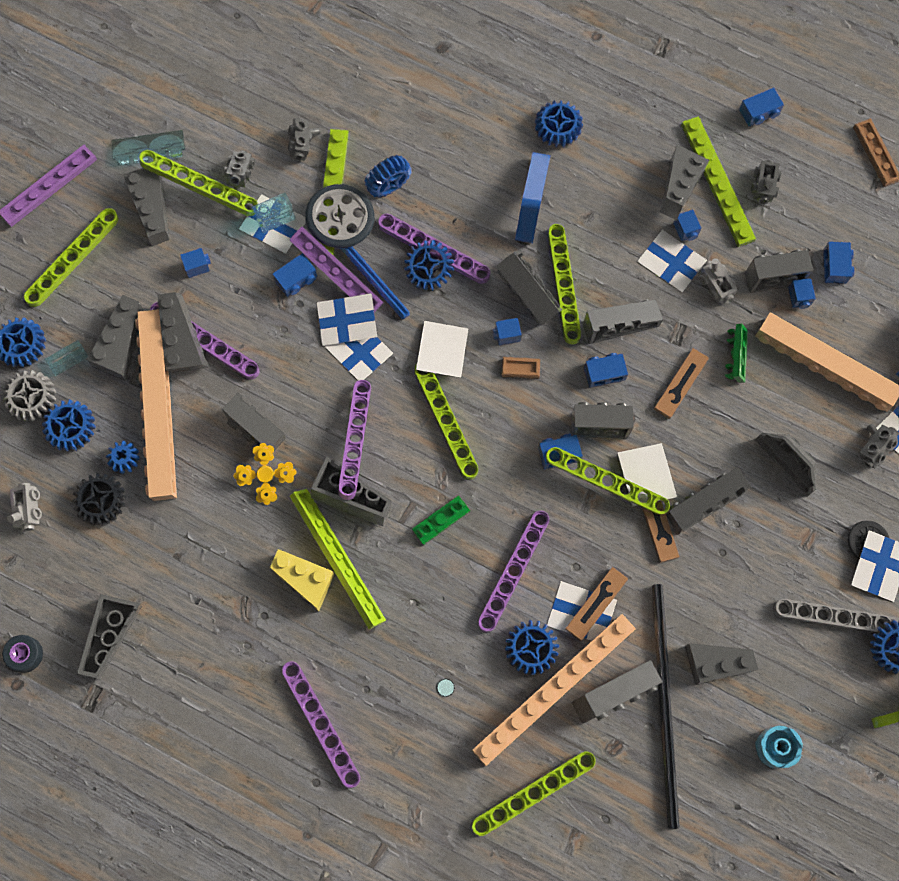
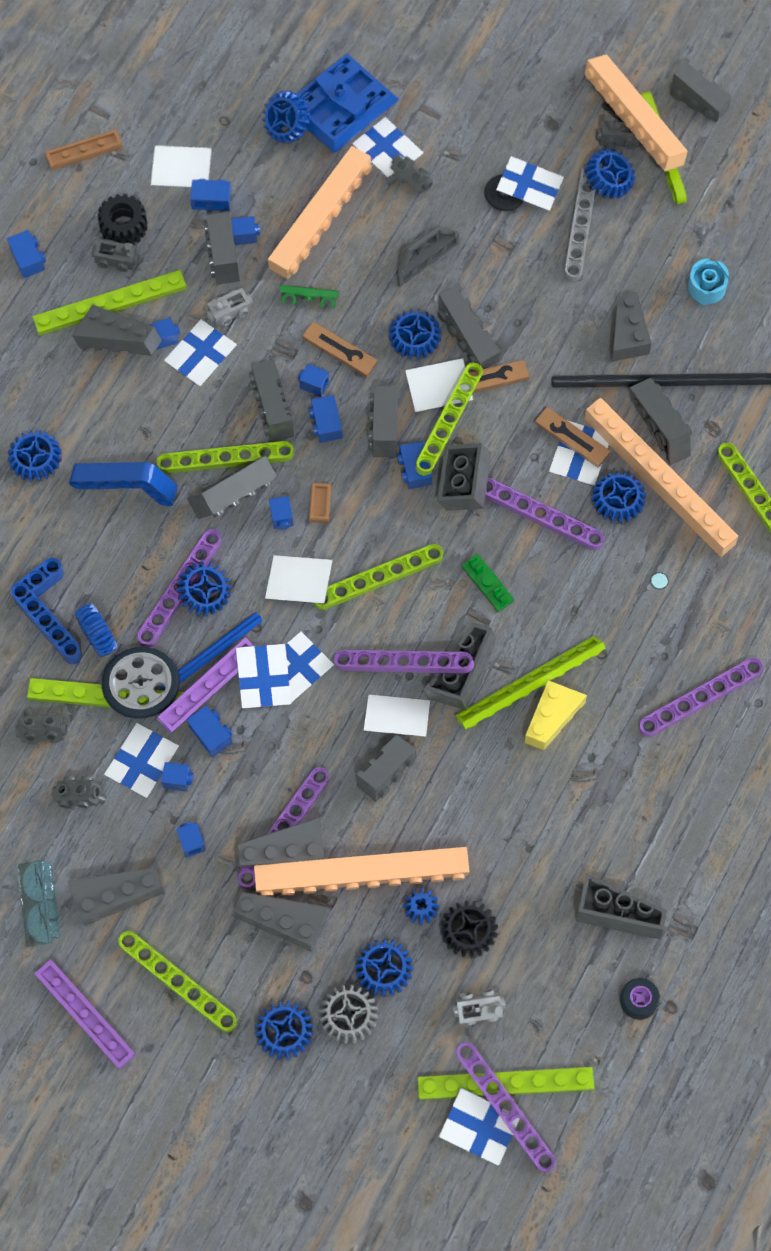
camera: 85 degrees left, 5 degrees down
(83, 355) = (311, 994): clear light blue tile -> none
(192, 176) = (94, 844): lime beam -> none
(253, 249) = (176, 776): none -> blue brick
(264, 473) = (441, 755): yellow plant -> none
(273, 212) = (135, 760): clear light blue window -> none
(305, 435) = (397, 715): none -> white sticker
(409, 137) = (42, 613): none -> blue beam
(545, 495) = (464, 477): none -> dark grey brick
(646, 358) = (313, 380): none -> blue brick
(685, 450) = (400, 329): none -> blue gear
(806, 173) = (122, 207): none -> black tyre
(869, 237) = (180, 165): none -> white sticker

